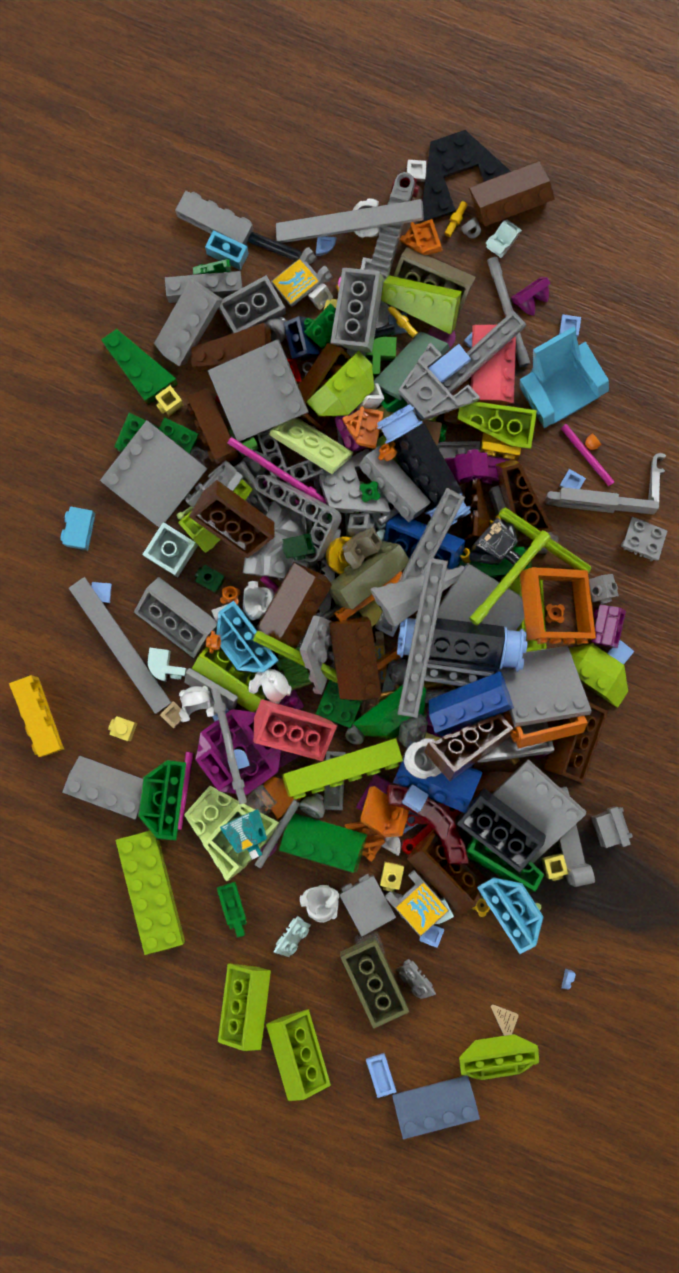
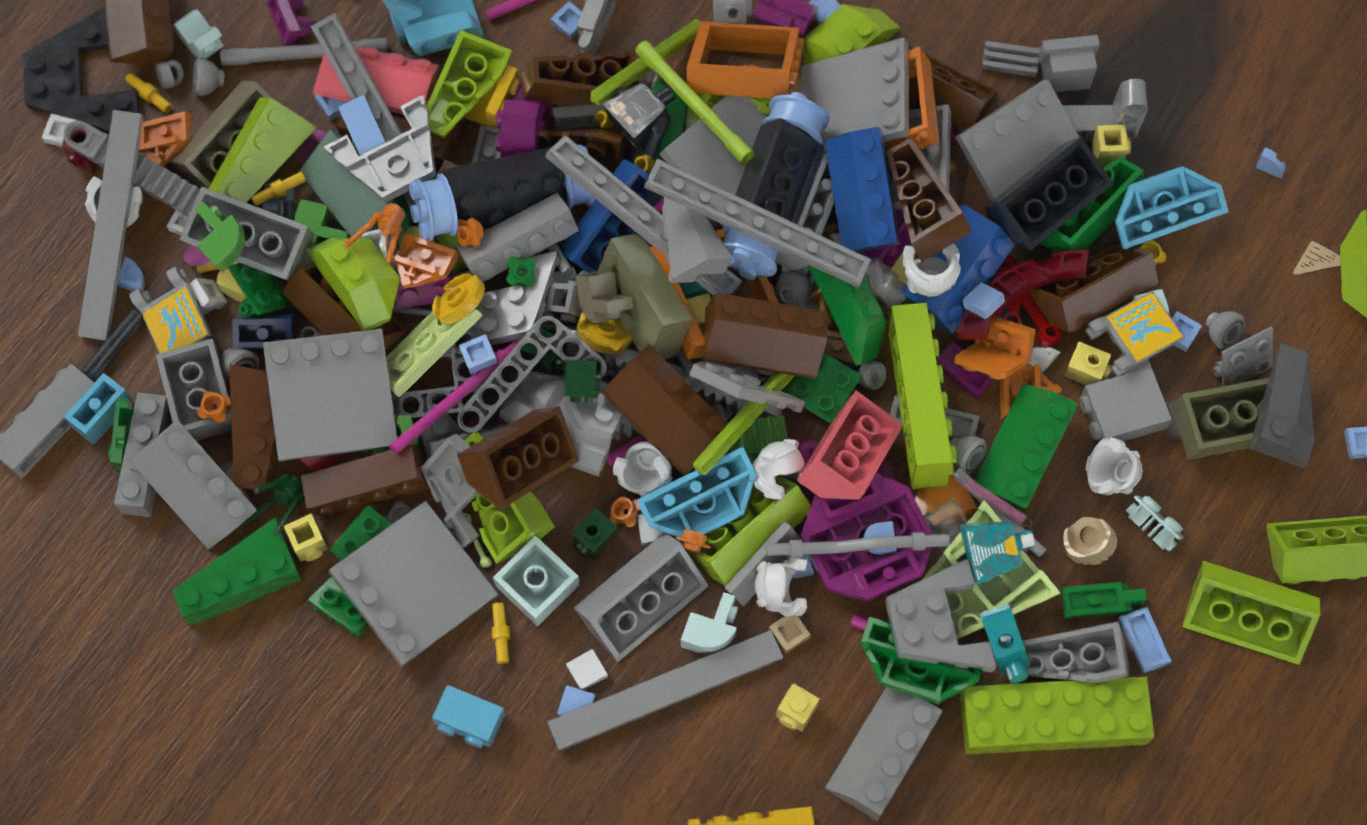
camera: 75 degrees left, 15 degrees down
(124, 594) = (586, 670): none -> white tile
(136, 535) = (500, 633): none -> yellow bar
(186, 797) = (924, 622): none -> light grey wing
(188, 898) = (1079, 655): none -> light grey wedge
(191, 847) = (1006, 643): none -> teal torso
(198, 380) = (287, 491): none -> dark green plant
(213, 940) = (1144, 640): none -> light blue tile
(233, 316) = (210, 399): none -> orange plate
(269, 895) = (1090, 541): none -> tan hair
(278, 840) = (994, 501): none -> bright pink piece
(307, 477) = (478, 354): none -> light blue tile
(341, 456) = (459, 299): none -> yellow tile
(346, 297) = (226, 240): none -> bright green brick
(376, 1011) = (1286, 415): none -> dark grey wedge
(384, 398) = (389, 222): none -> orange plant
(437, 963) = (1225, 328): none -> light grey brick
(473, 253) = (206, 77): none -> light grey brick
(610, 787) = (1010, 54): none -> light grey tile

